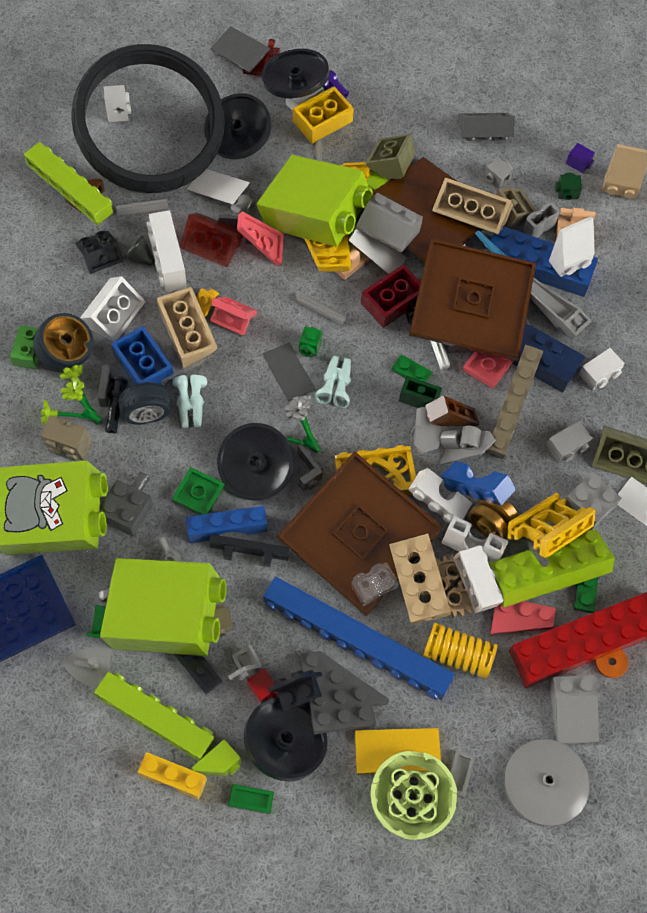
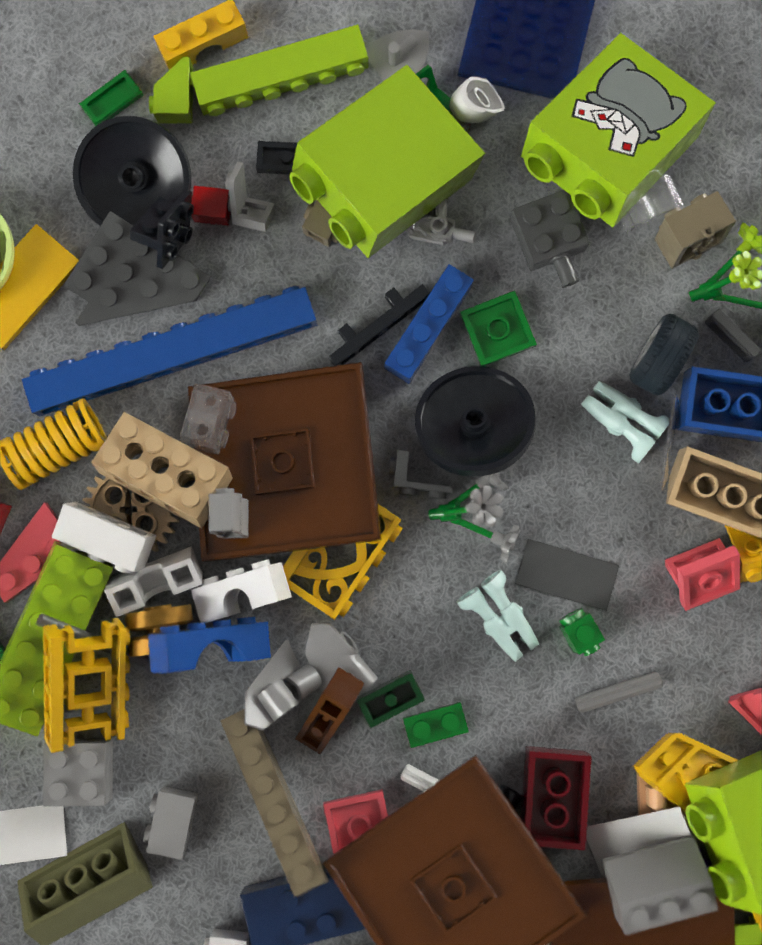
camera: 140 degrees right, 20 degrees up
(86, 594) = (475, 101): none -> white piece
(117, 388) = (708, 340): black pin -> none
(411, 524) = (228, 514): none -> light grey brick

